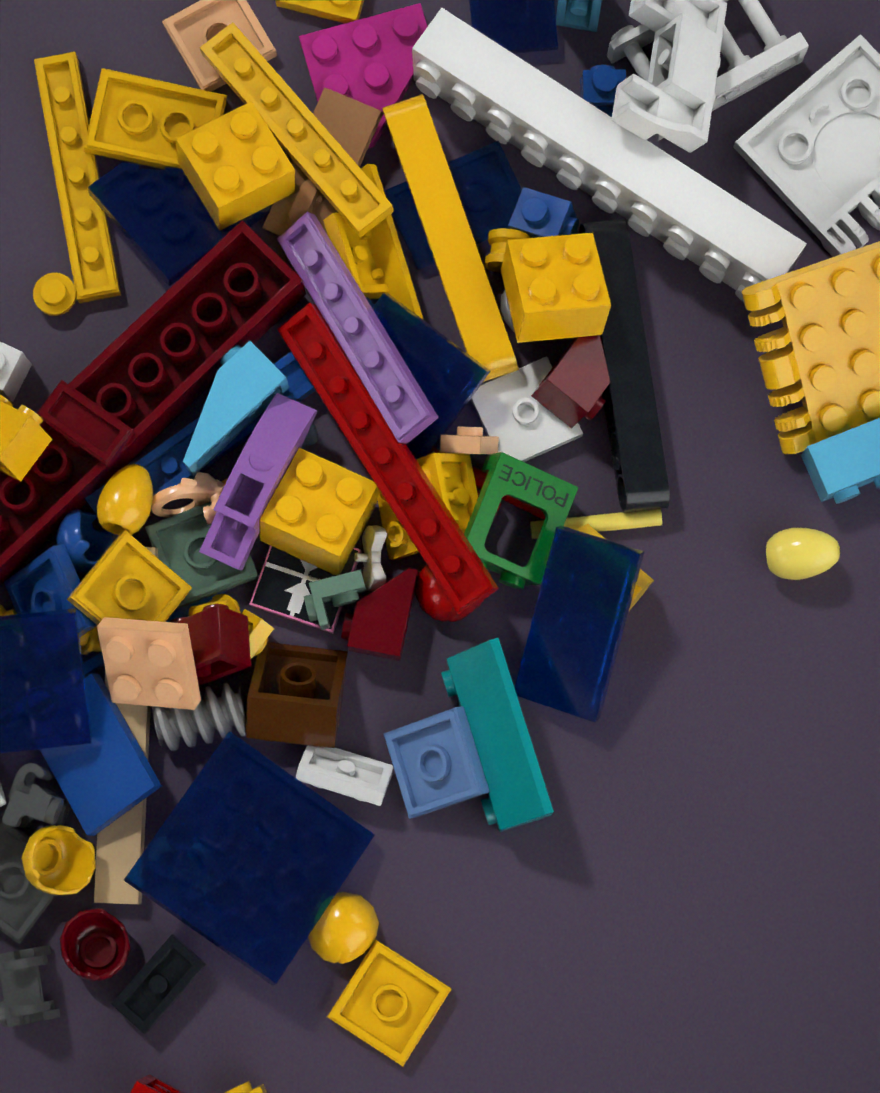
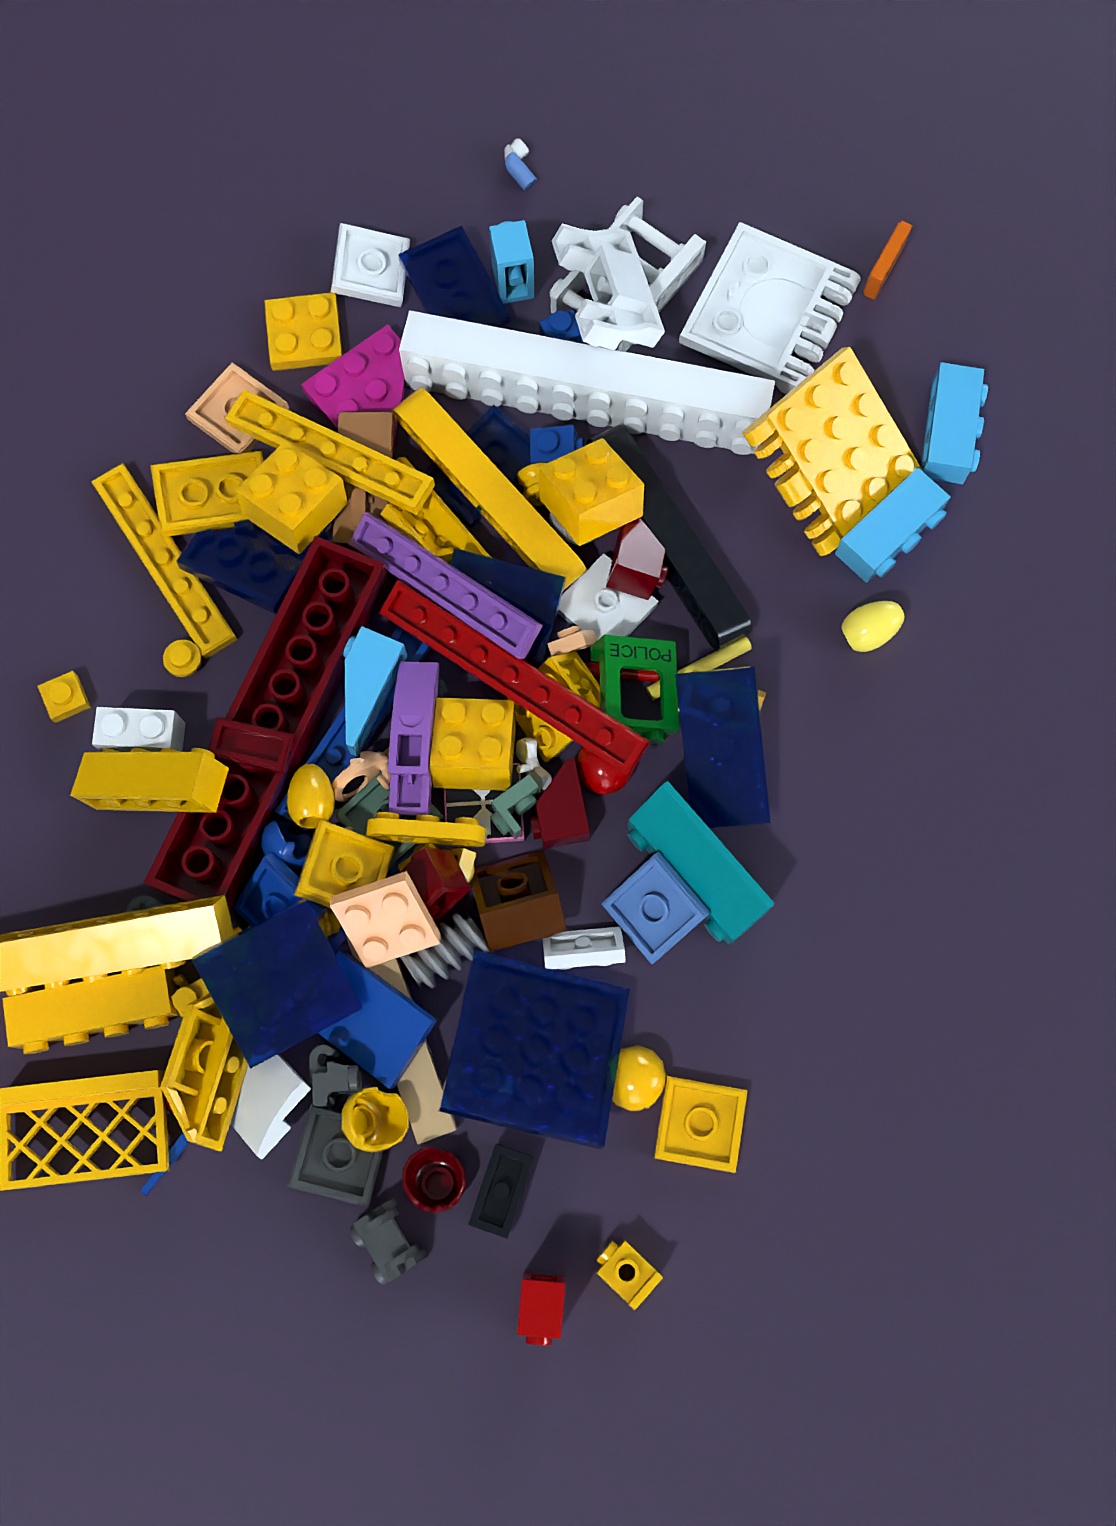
camera: 25 degrees left, 5 degrees down
(231, 584) = (426, 830): none -> yellow plate

